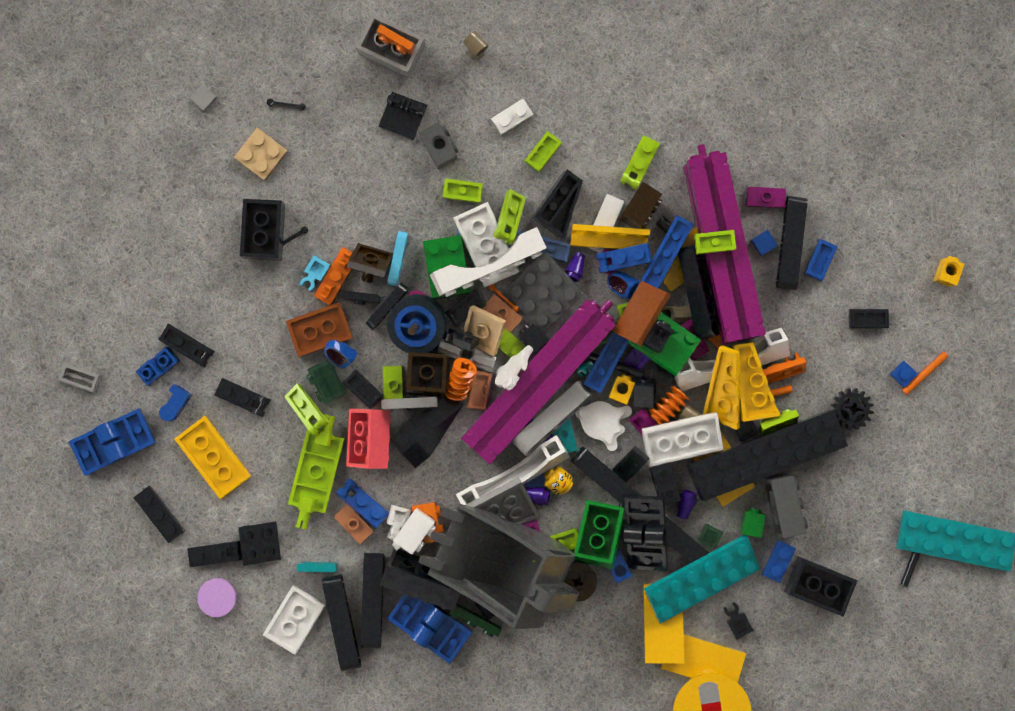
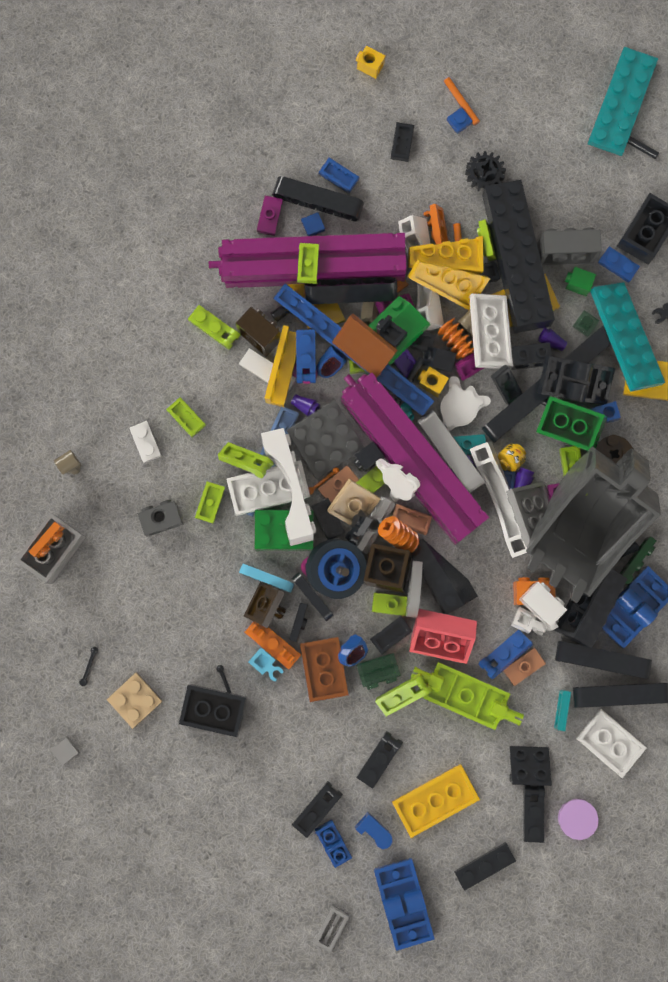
camera: 85 degrees left, 5 degrees down
(402, 115) = (123, 549): black hinge -> none
(558, 205) = (241, 410): black wedge -> none

